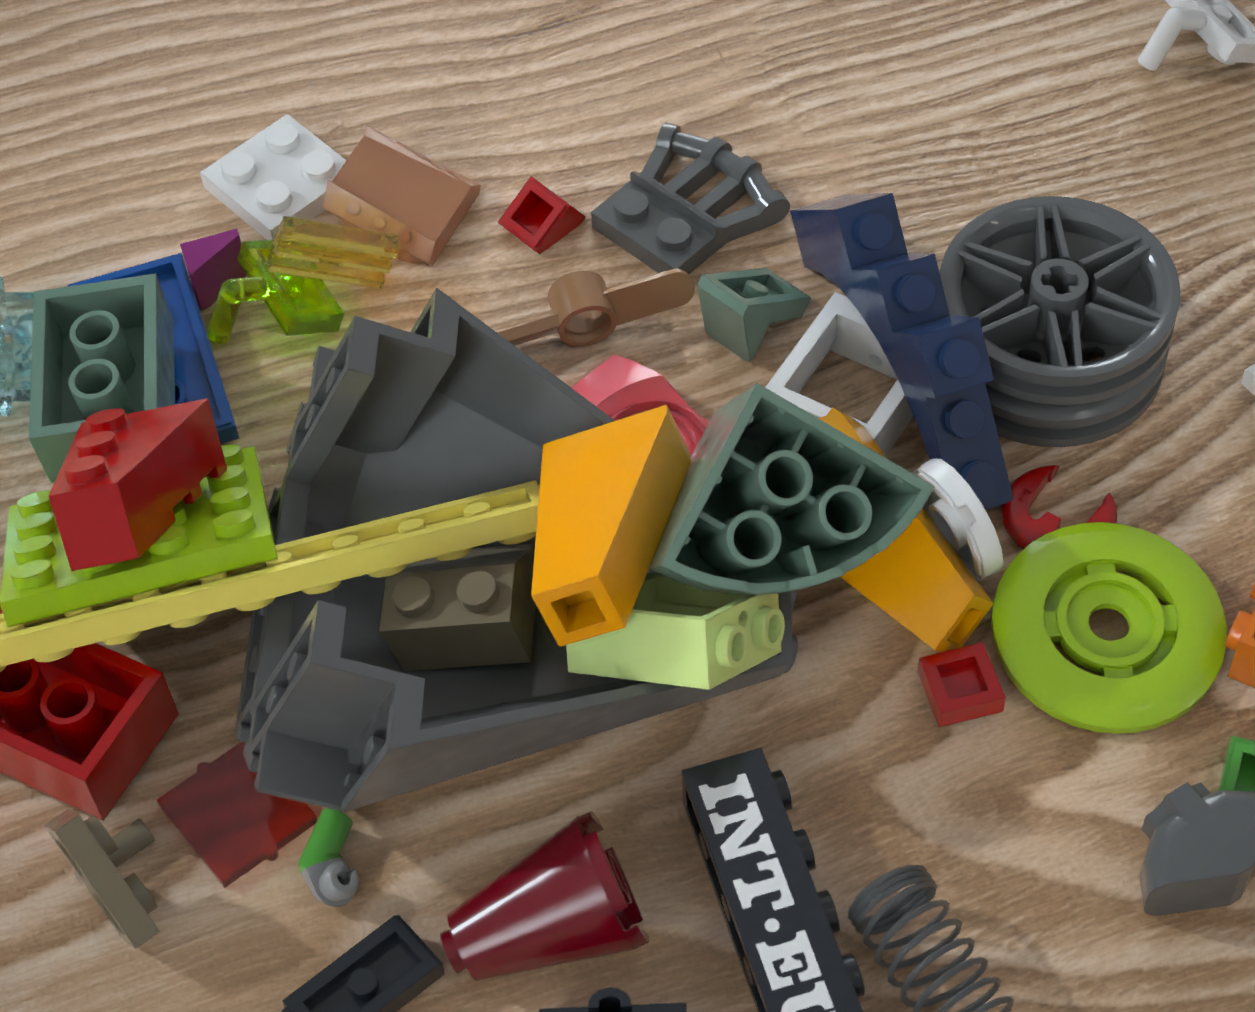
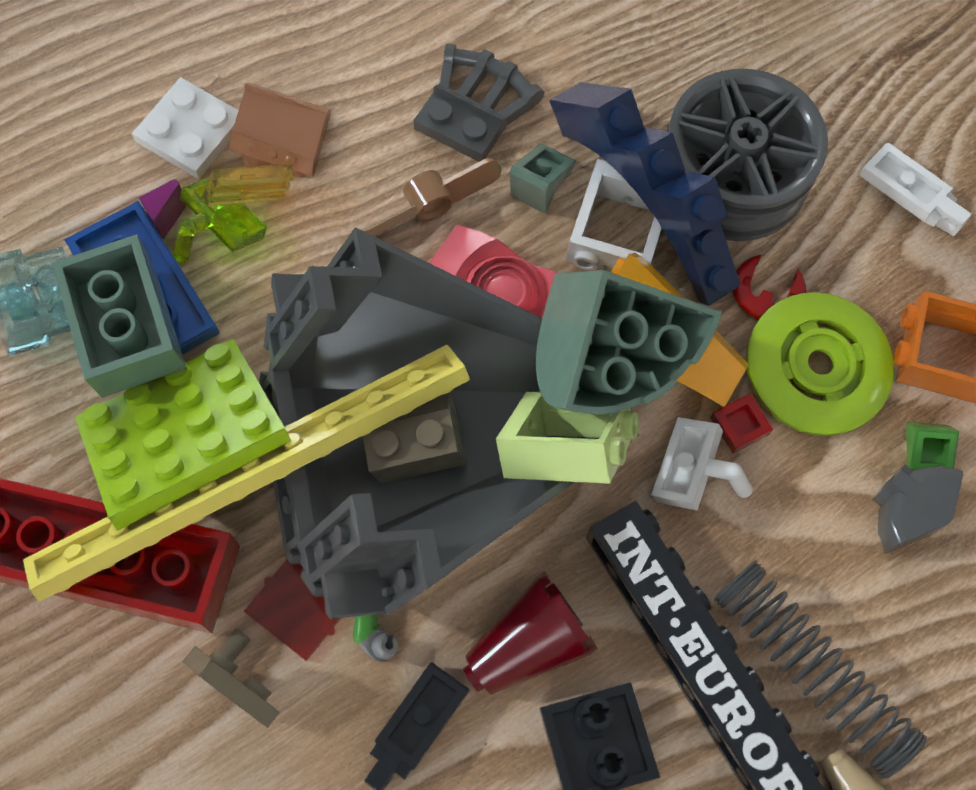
camera: 20 degrees left, 15 degrees up
(129, 476) = (170, 402): red wedge -> none
(540, 216) = (378, 128): red slope -> none
(602, 520) = (508, 375): light orange slope -> none
(865, 720) = (690, 463): none -> white plate
(961, 518) = (733, 323): white tile -> none

